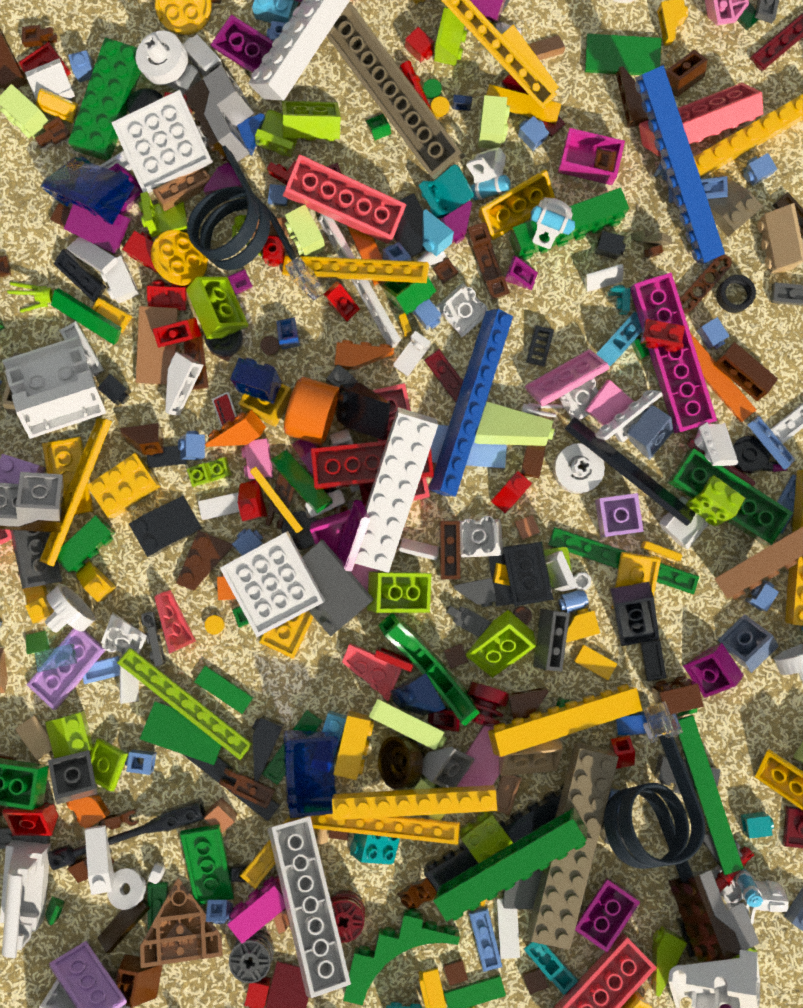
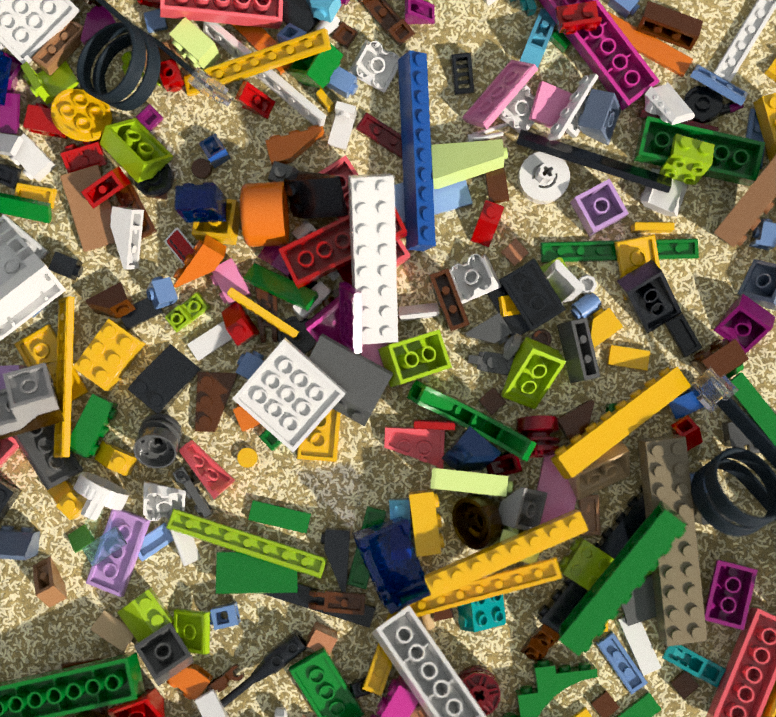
camera: 15 degrees left, 0 degrees up
(138, 581) = (157, 441): none -> dark grey wheel
(492, 612) = (511, 346): none -> light grey tile

